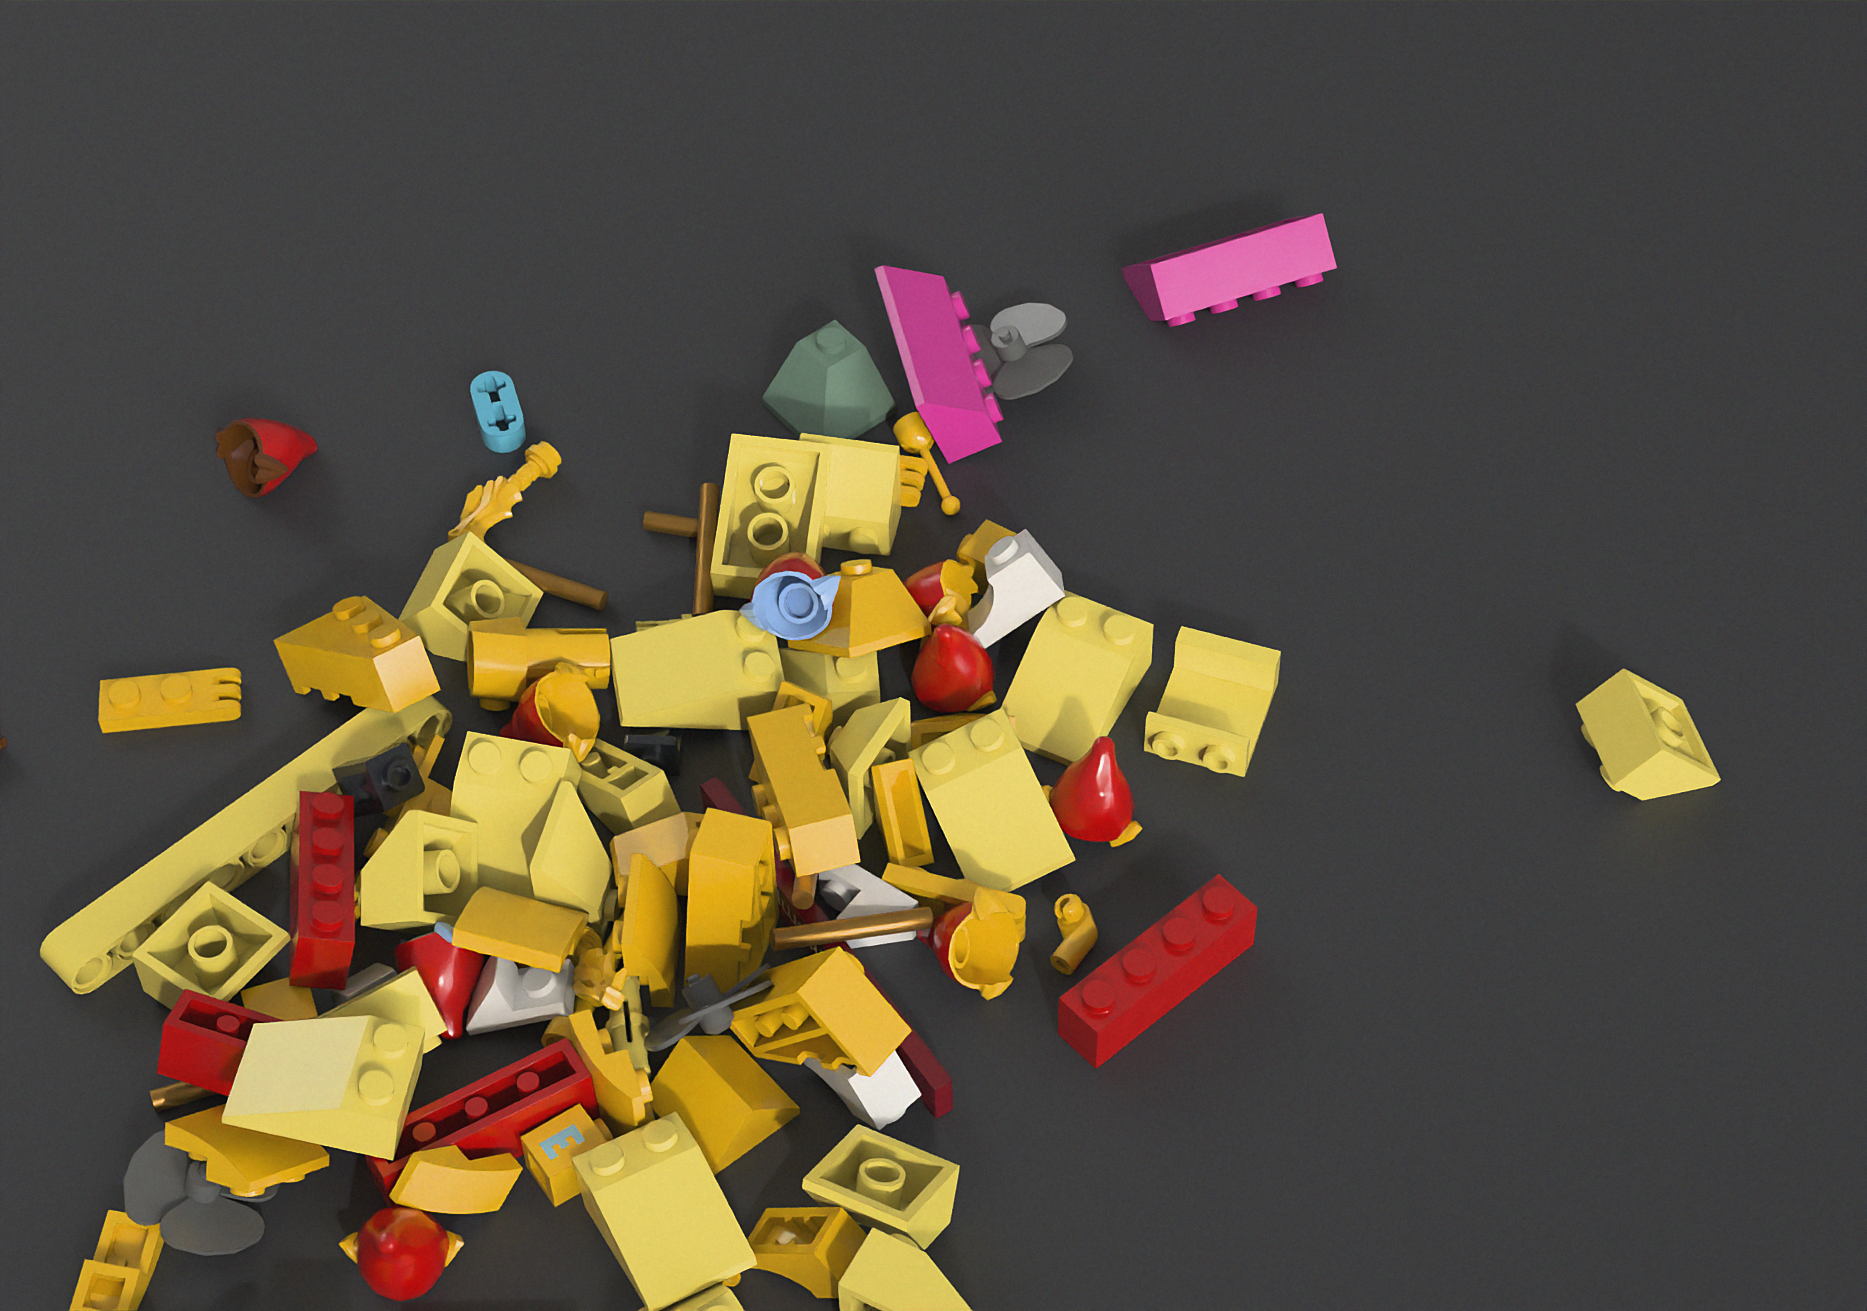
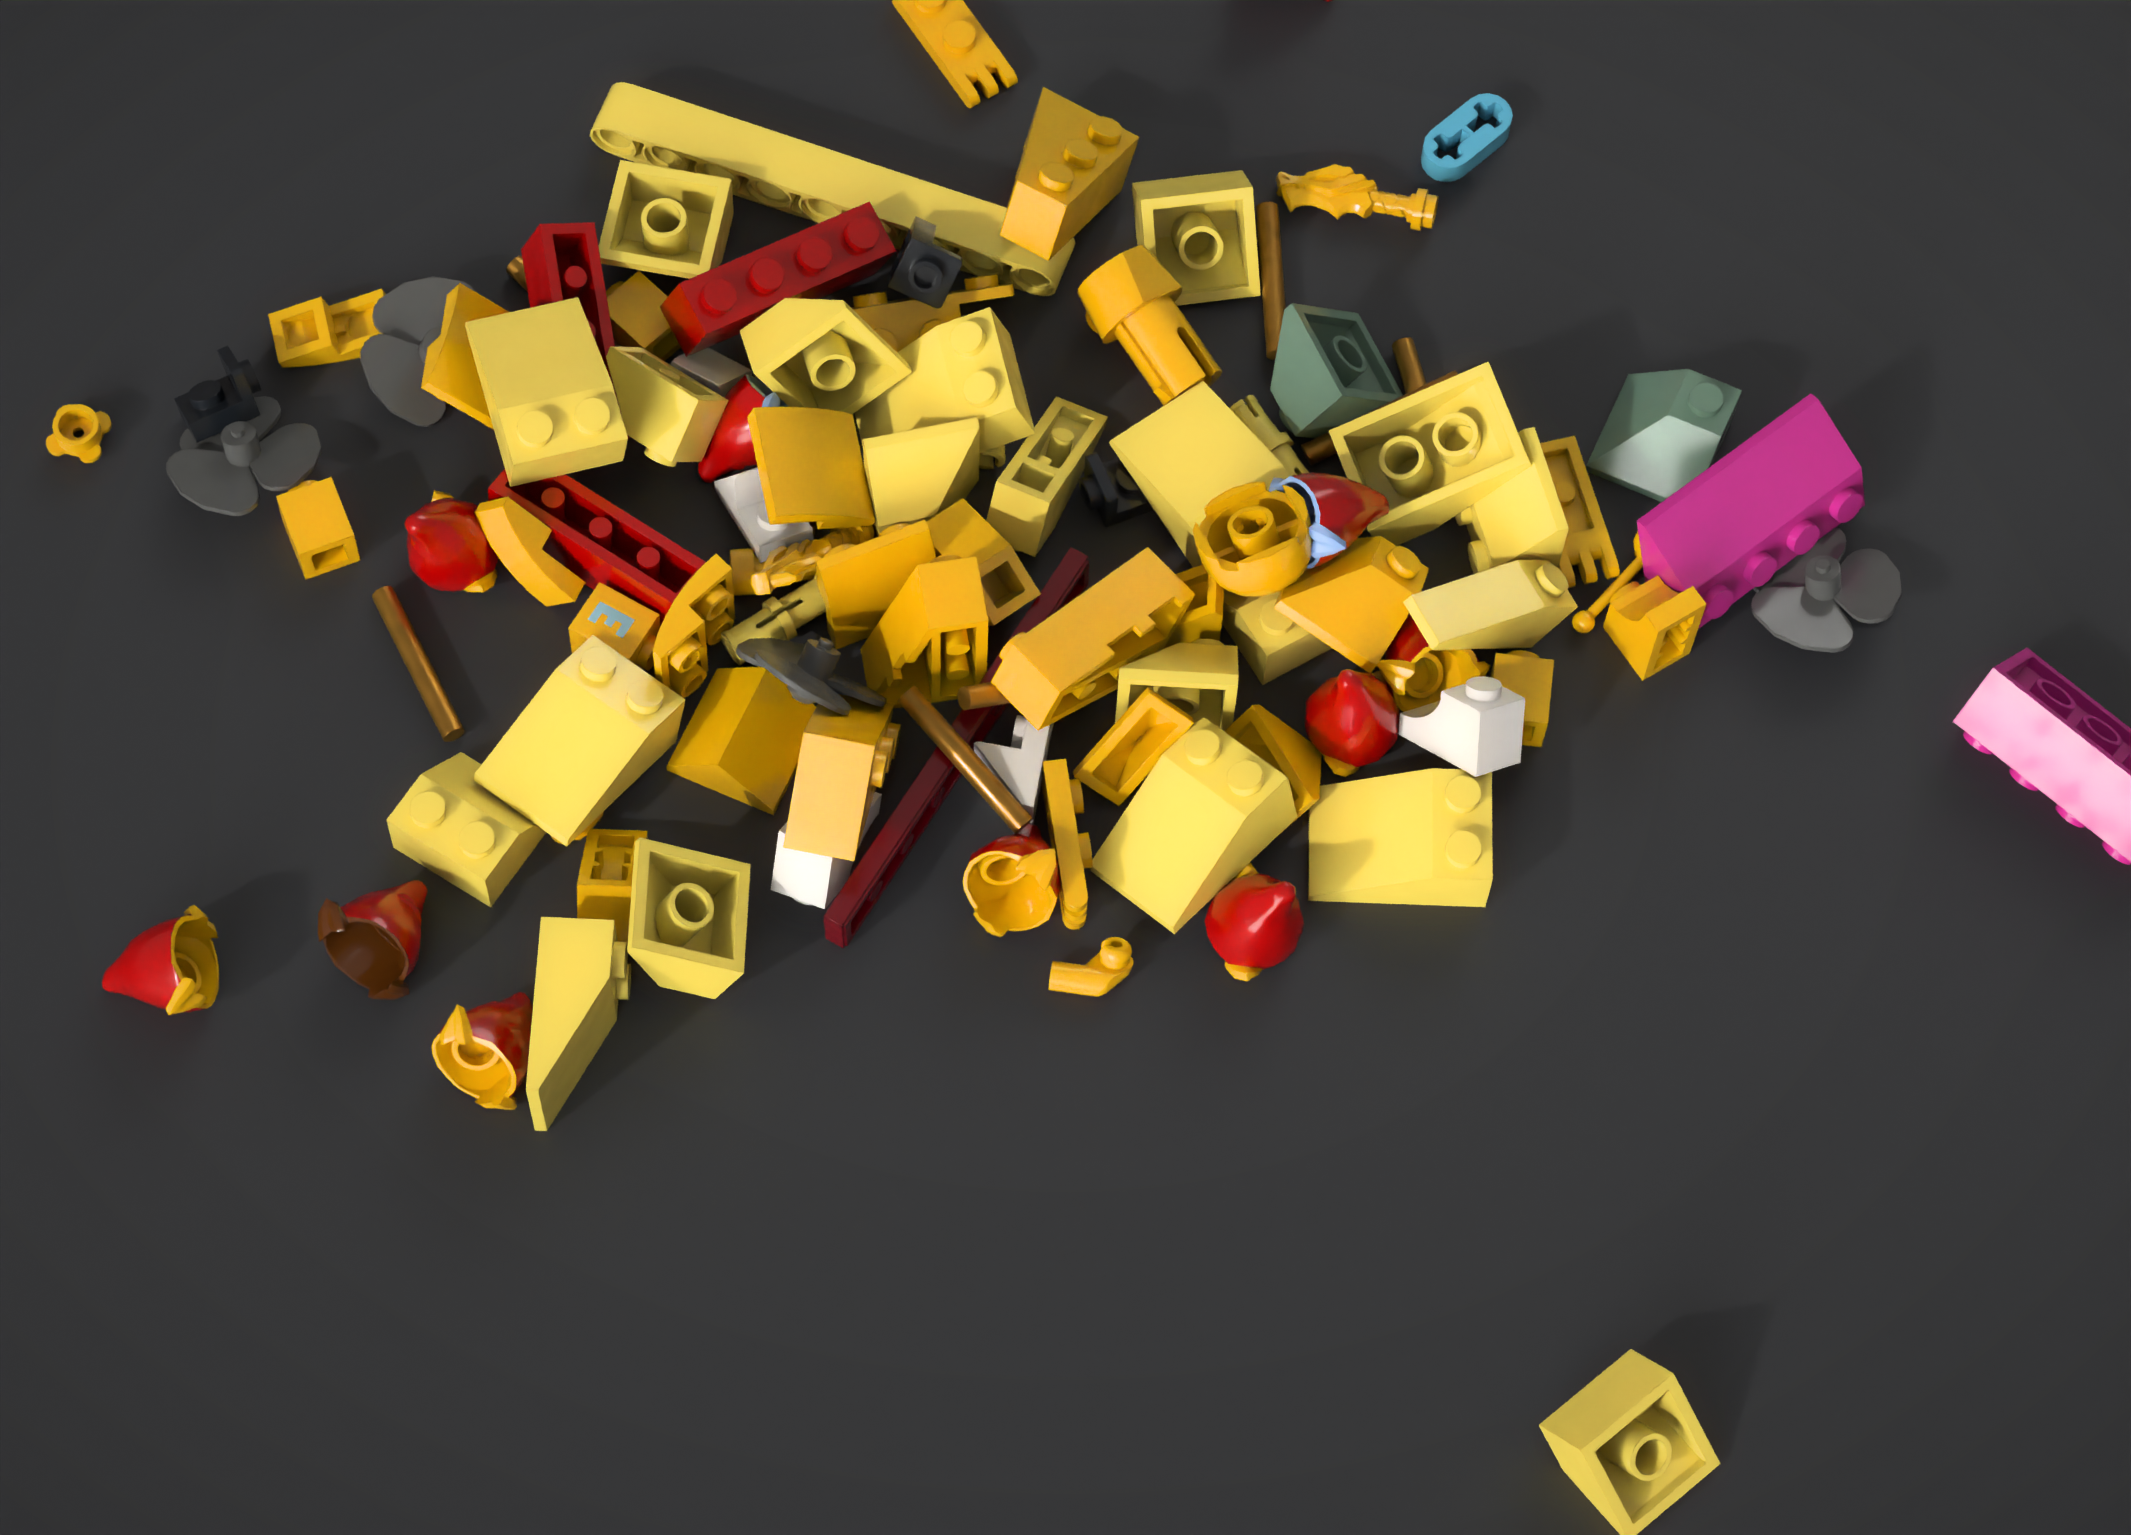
camera: 60 degrees right, 15 degrees up
(557, 712) = (1092, 382): yellow hat -> none
(650, 571) = (1327, 370): none -> sand green slope
(790, 636) = (1255, 539): none -> yellow cylinder
(925, 526) = (1494, 608): none -> light yellow slope
(986, 453) = (1653, 624): none -> yellow arch
(1156, 971) = (1077, 1065): red brick -> none
(1213, 702) = (1447, 989): light yellow panel -> none

